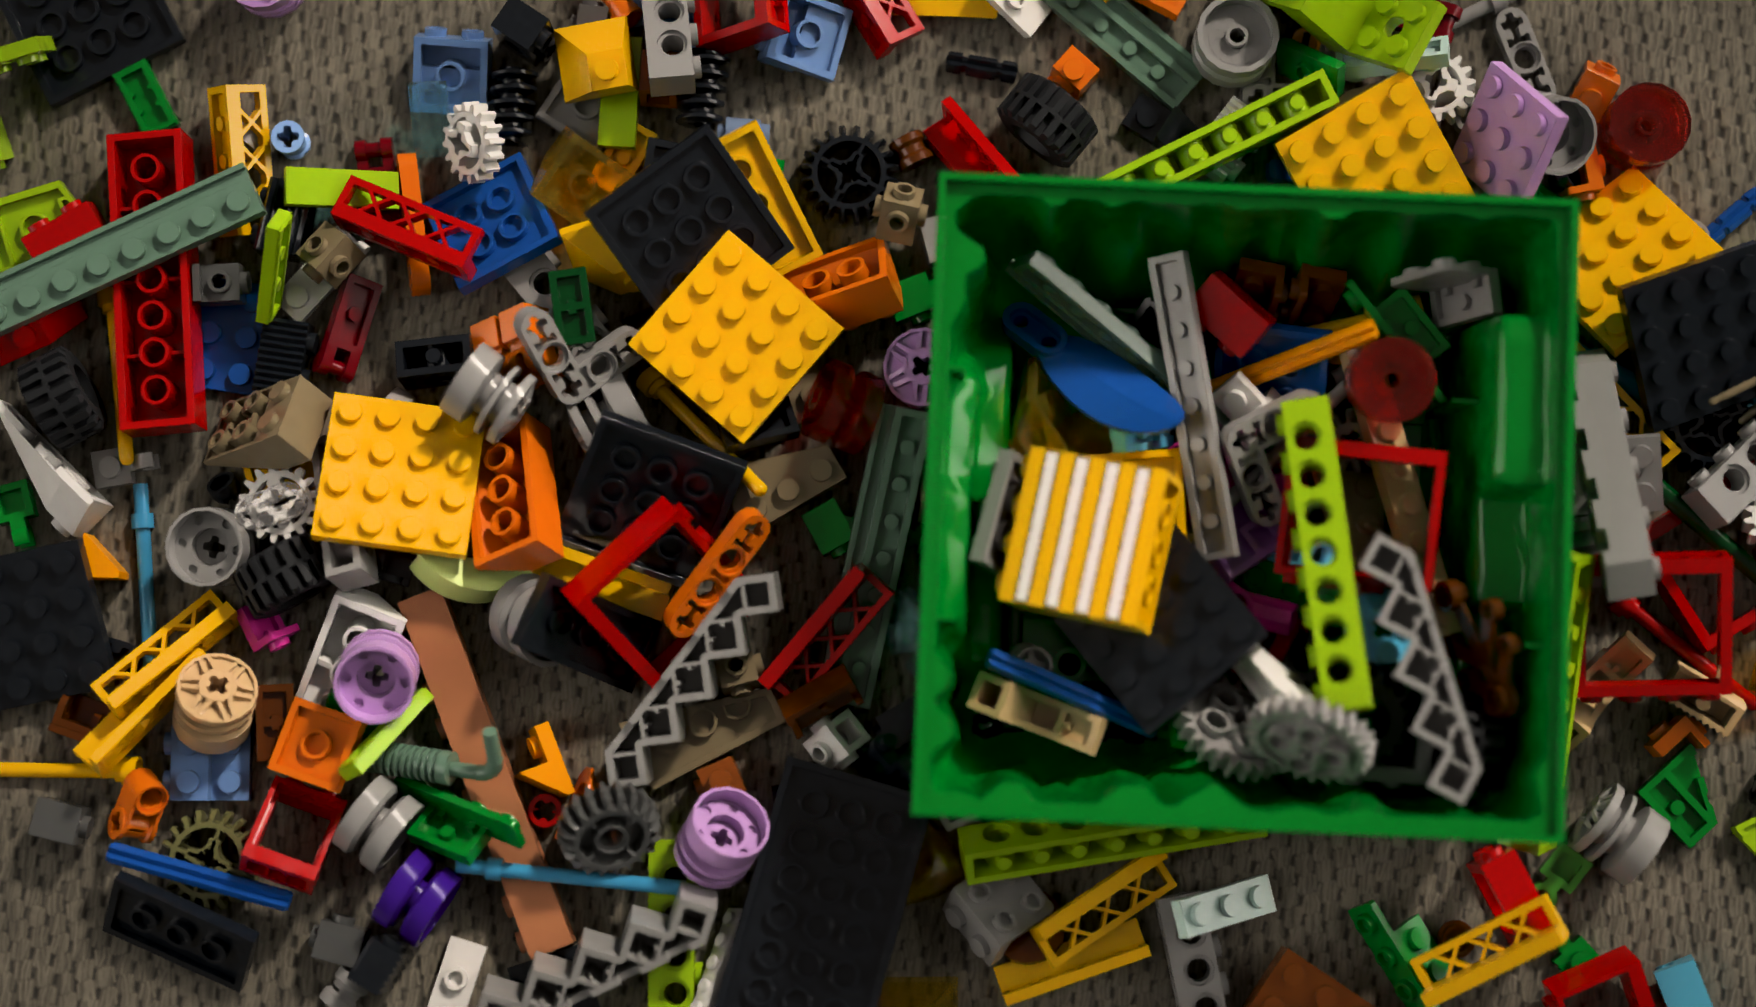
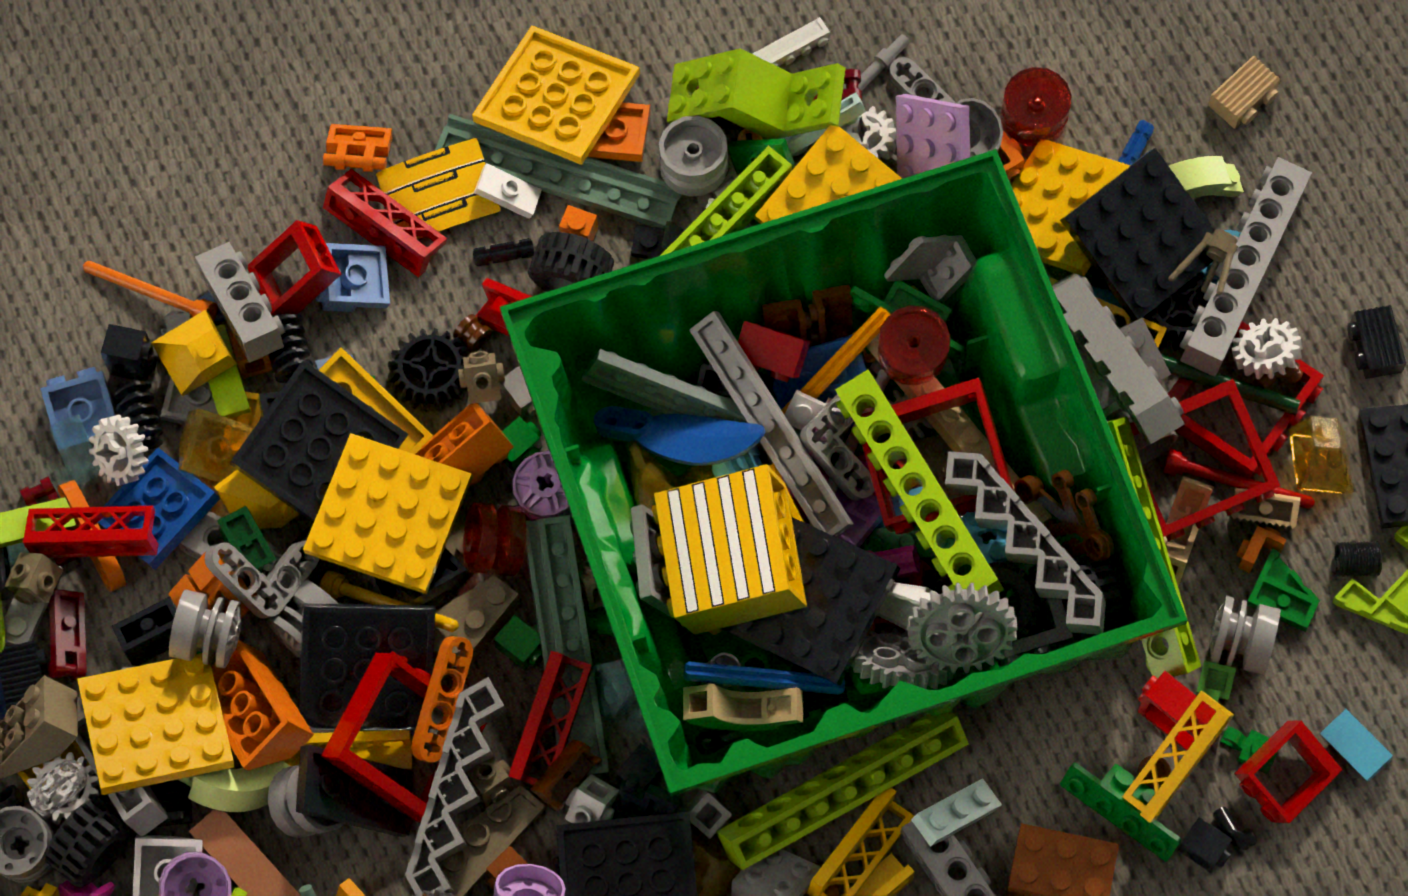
camera: 20 degrees left, 15 degrees down
(1597, 87) = (989, 89): orange bracket -> none

